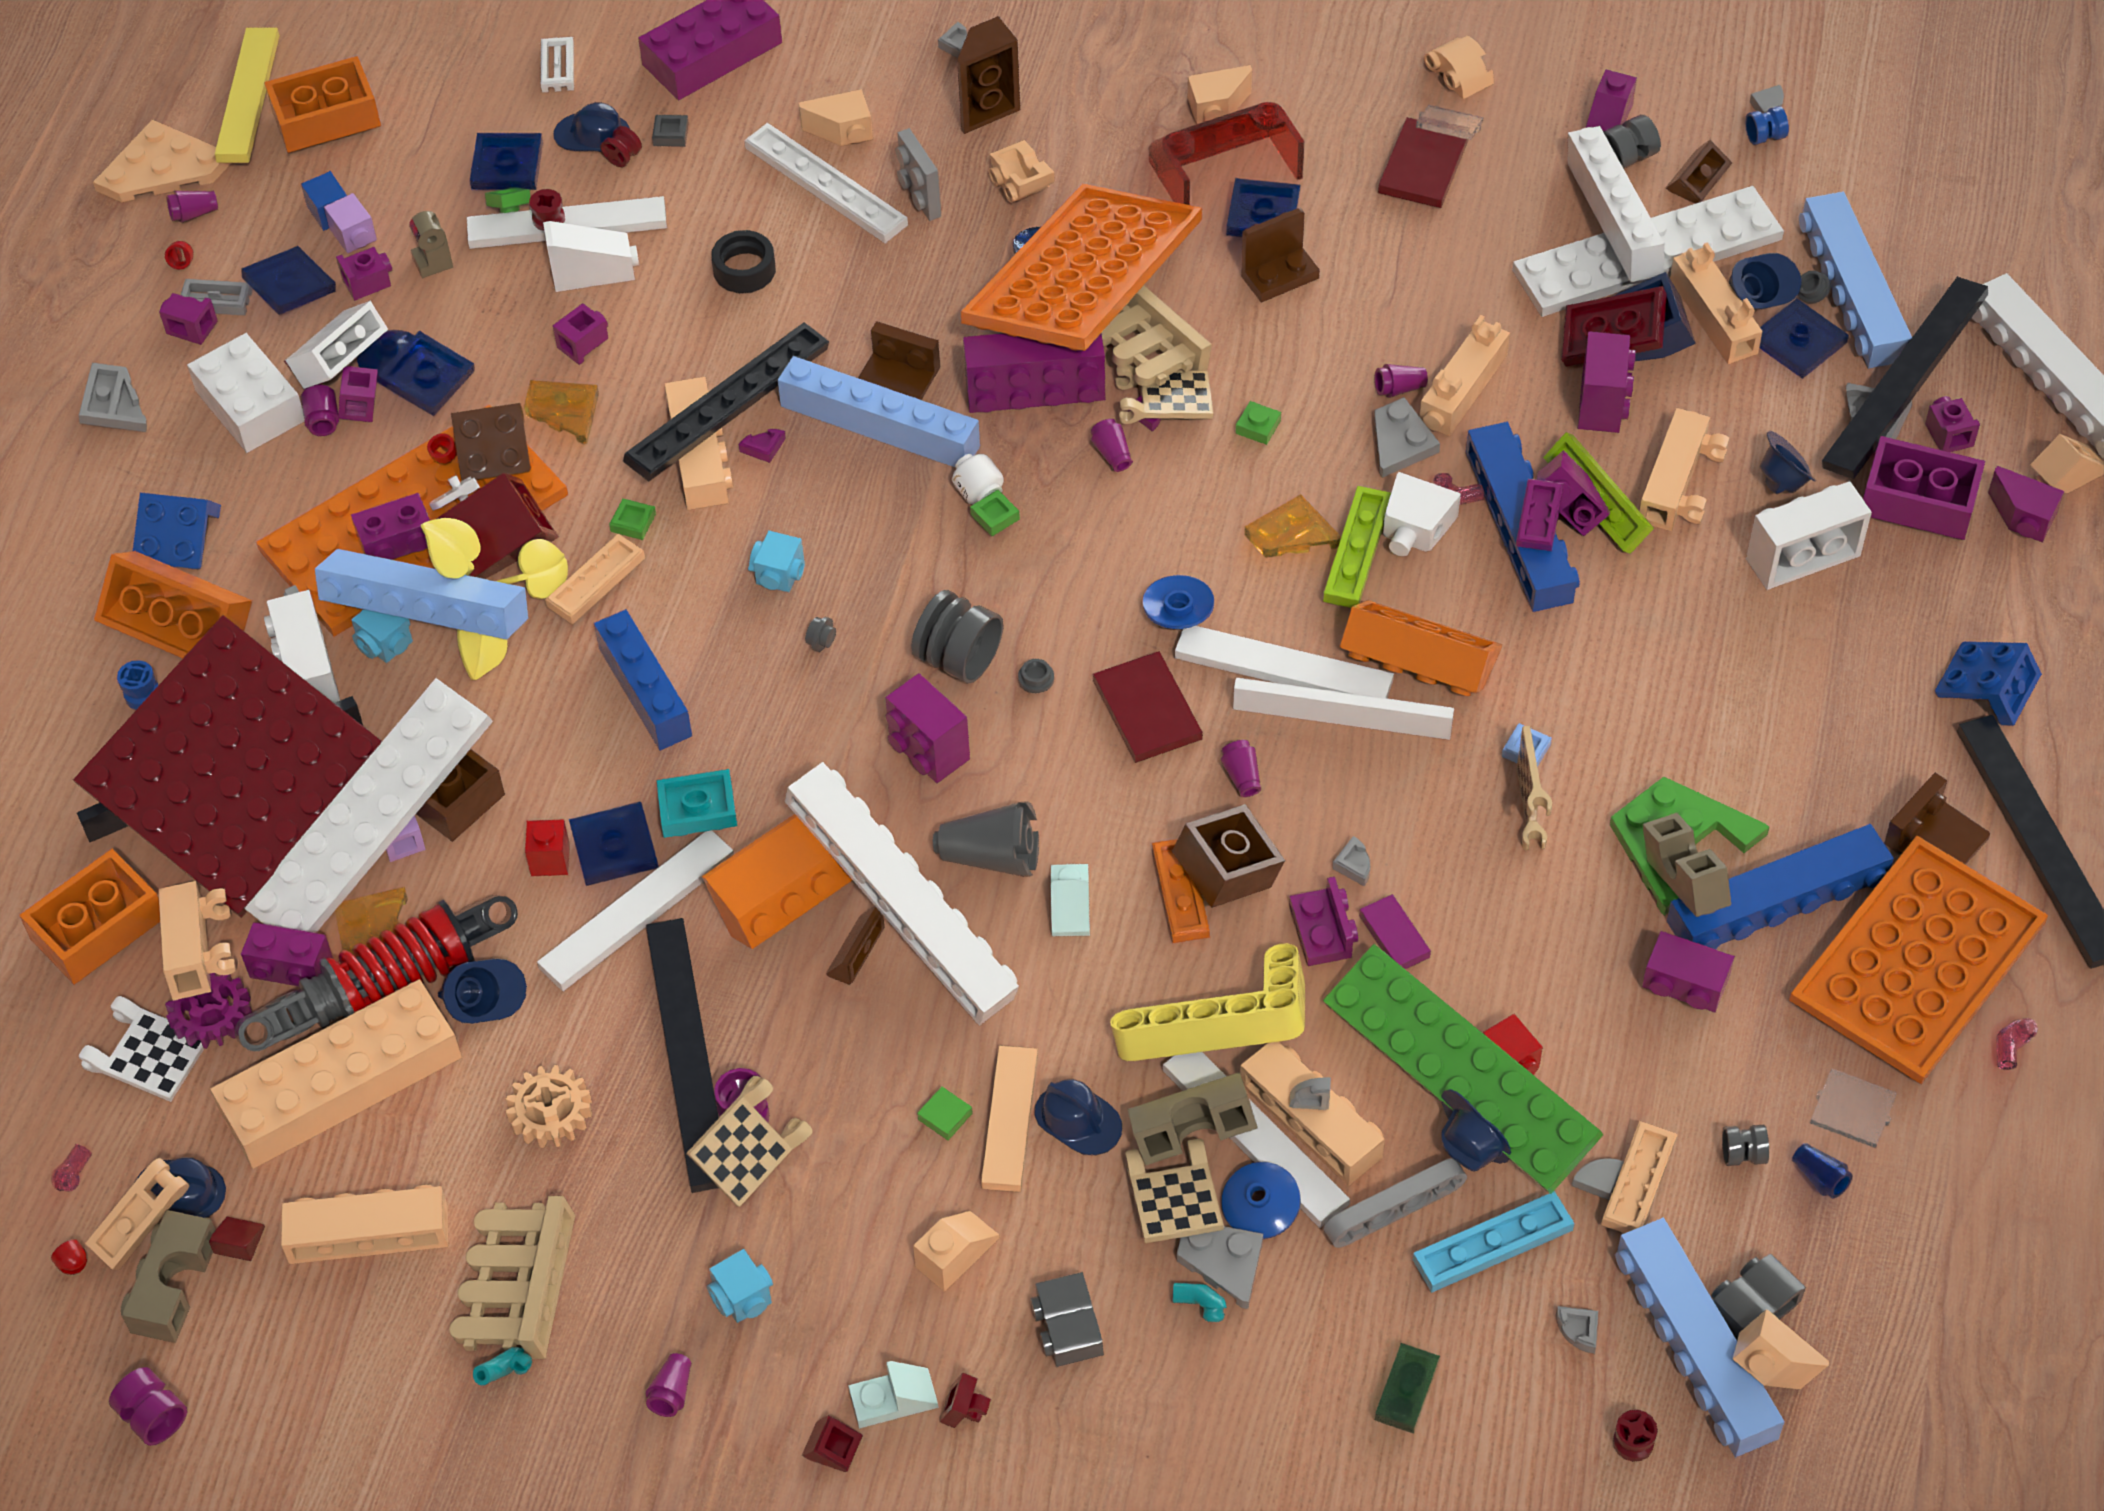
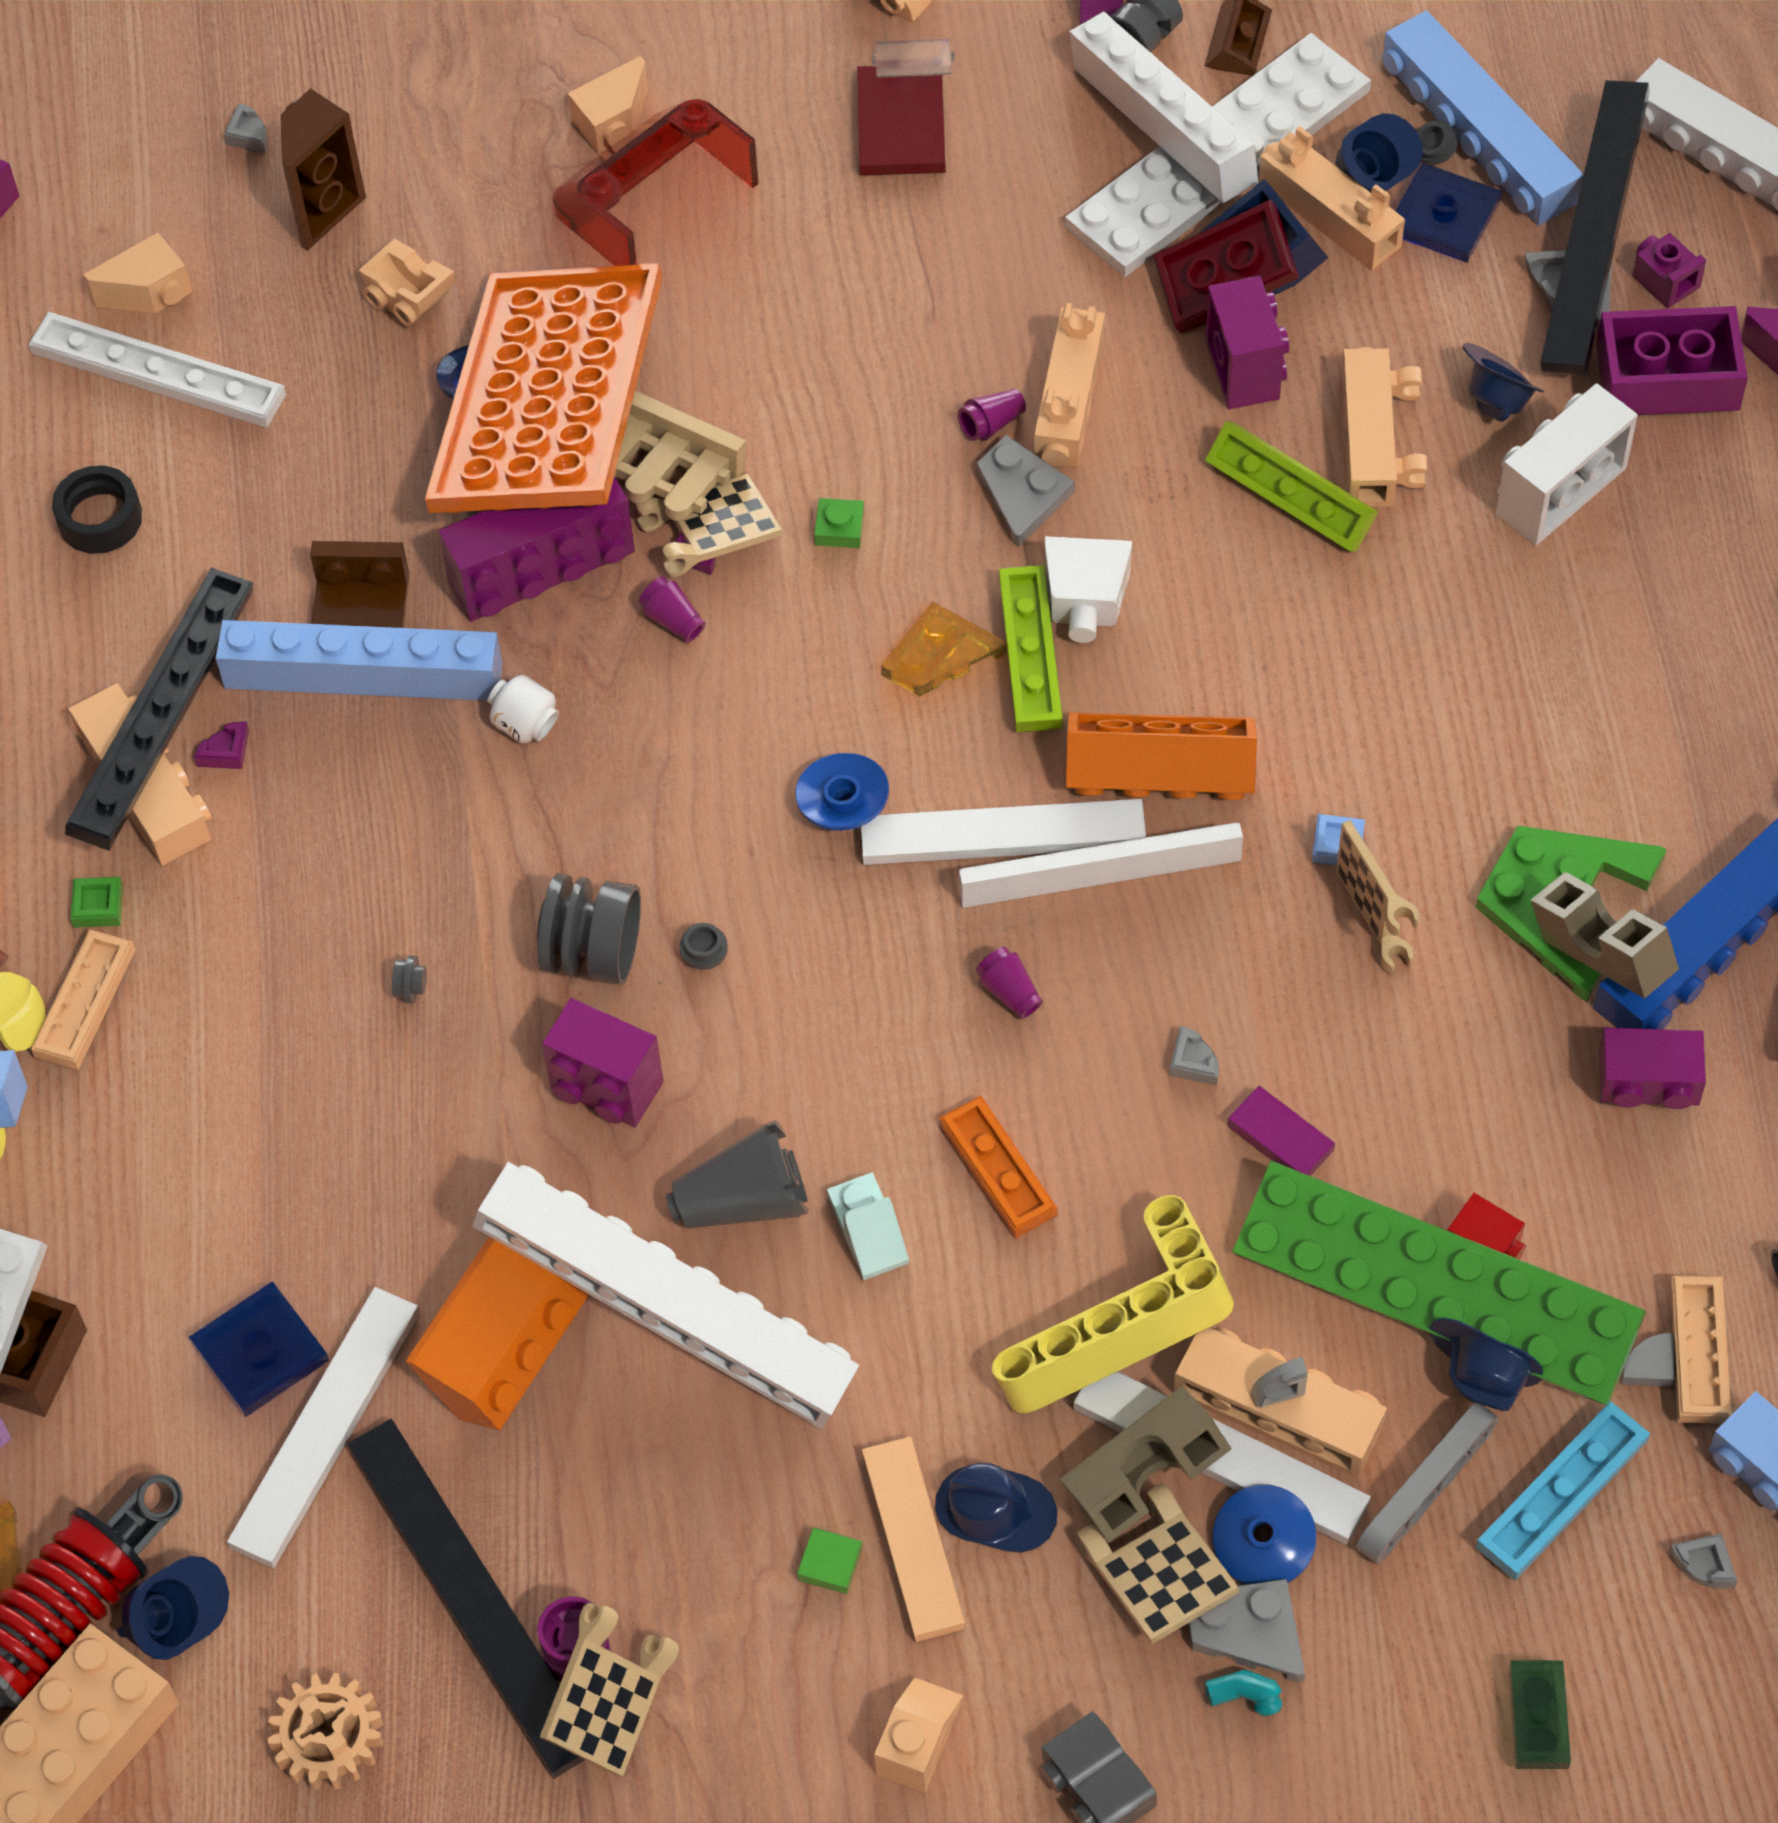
camera: 20 degrees left, 5 degrees up
(547, 847) = (177, 1385): red brick -> none
(643, 679) = (206, 1116): blue brick -> none
(696, 803) = (346, 1259): teal plate -> none
(777, 561) = (312, 900): medium azure brick -> none
(857, 946) = (626, 1379): reddish brown slope -> none
(918, 174) = (280, 326): light grey plate -> none
(995, 513) = (562, 746): bright green plate -> none
(1147, 706) = (858, 940): dark red tile -> none
(1228, 855) = (1046, 1105): reddish brown brick -> none
(1258, 202) = (731, 241): clear blue plate -> none
(1276, 257) = (774, 302): reddish brown bracket -> none
(1323, 924) = (1192, 1151): magenta bracket -> none
(1469, 493) = (1138, 533): clear pink arm -> none
(1504, 476) = (1212, 546): blue brick -> none
(1539, 514) = (1243, 540): magenta plate -> none
(1580, 499) = (1262, 497): magenta slope -> none

